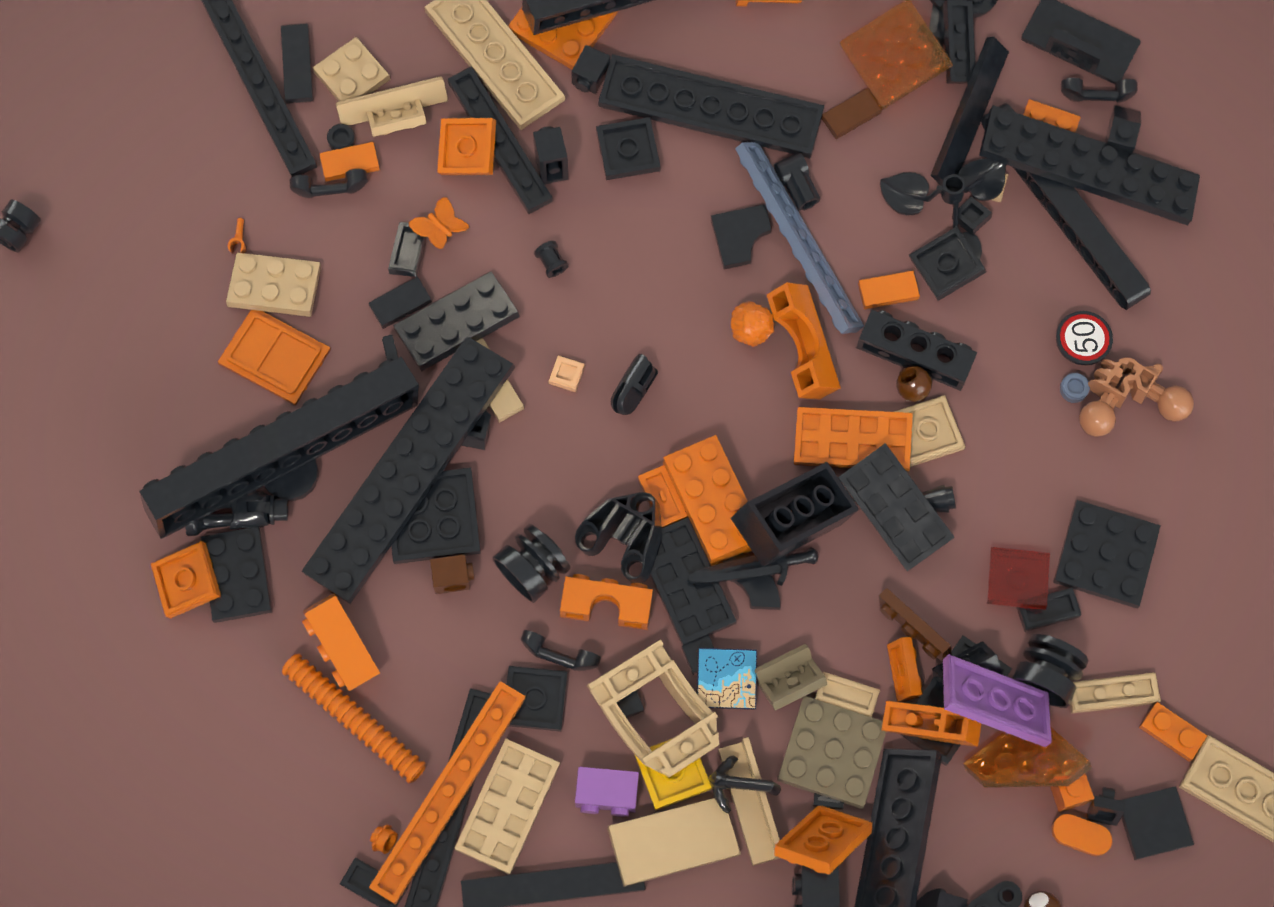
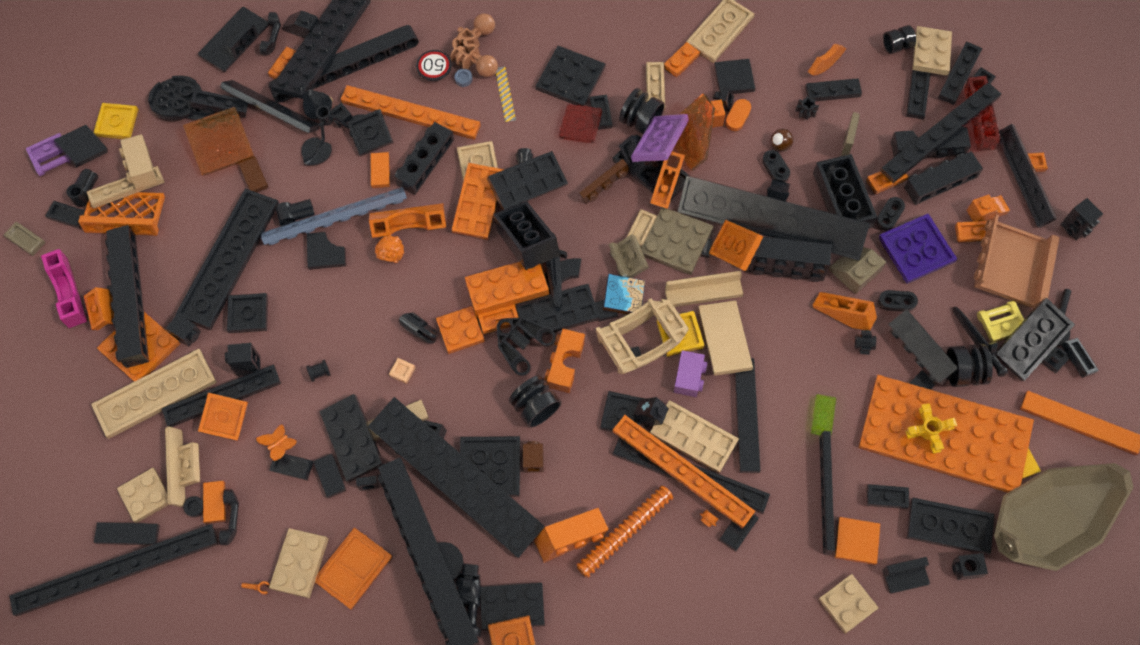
camera: 80 degrees left, 5 degrees down
(535, 735) = (651, 411): none -> black brick
(584, 661) = (588, 409): black bar -> none
(639, 444) = (460, 330): none -> orange plate
(721, 781) = (692, 300): black piece -> none
(904, 669) = (630, 192): orange plate -> none
(914, 383) = (447, 161): reddish brown piece -> none
(997, 319) = (409, 111): none -> orange plate
(1057, 456) = (505, 94): none -> sticker

